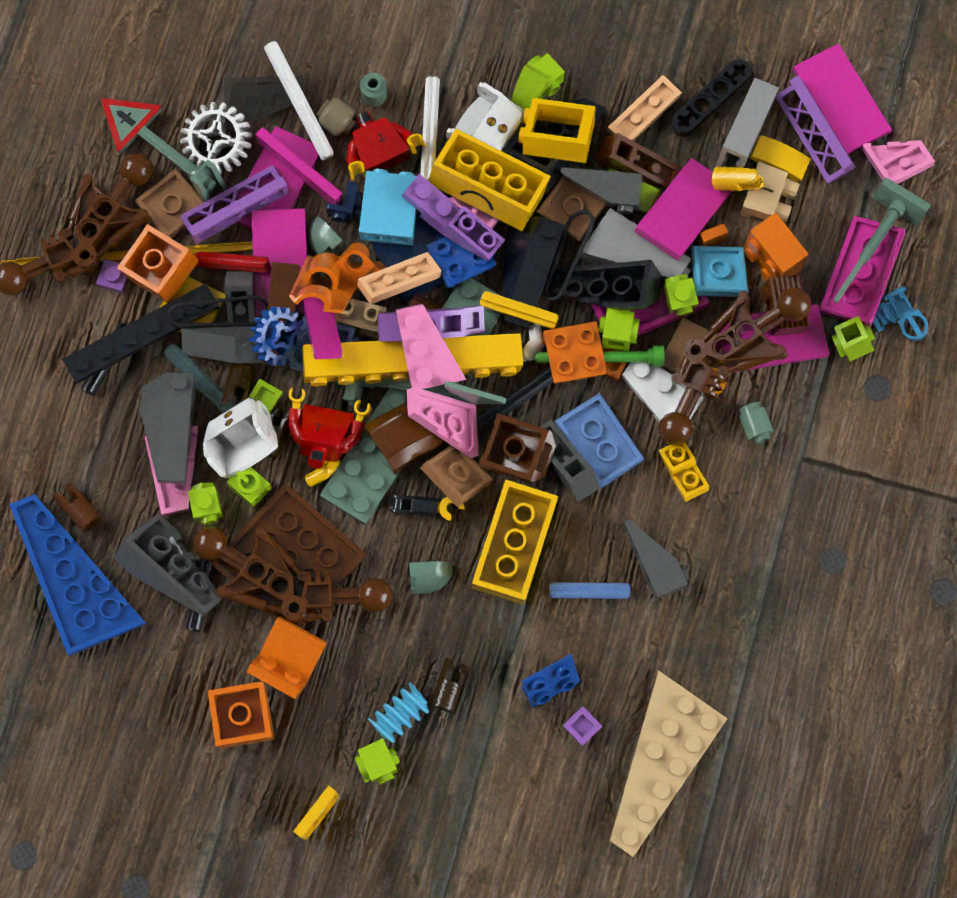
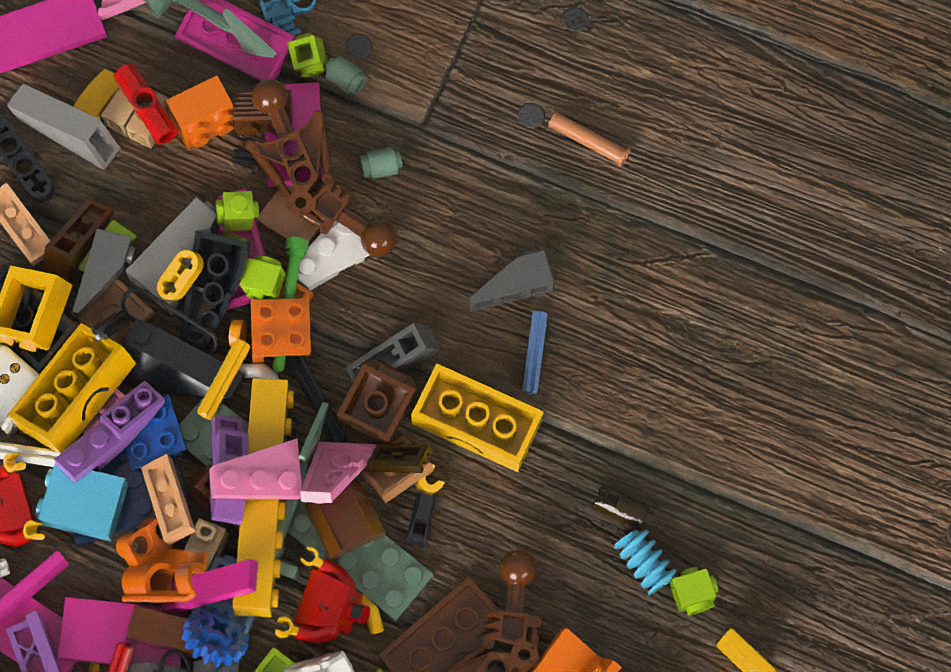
camera: 85 degrees left, 5 degrees down
(323, 238) = (101, 584): sand green brick -> none
(352, 200) = (67, 548): dark blue bracket -> none
(429, 576) = (500, 515): sand green brick -> none
(458, 478) = (399, 457): none -> dark brown tile
(550, 201) = (110, 325): none -> black axle
(550, 681) = (625, 389): blue hinge -> none
(568, 317) = (237, 330): none -> light orange tile
(582, 726) = (676, 378): medium lavender plate -> none
(600, 439) = (373, 319): medium blue tile -> none
(610, 250) = (182, 278): none -> yellow beam
(668, 748) = (710, 300): tan wing -> none
(682, 210) = (139, 197): dark pink tile -> none
(684, 471) = (421, 242): yellow slope -> none
(713, 235) = (173, 175): orange tile -> none
(718, 270) = (211, 173): medium azure tile -> none
(736, 179) = (117, 138): yellow hinge -> none
(783, 186) = (152, 116): none -> red piece
(814, 617) = (589, 138): none -> nougat pin
(819, 121) = (72, 48): medium lavender fence -> none
(840, 377) = (345, 75): none -> sand green brick

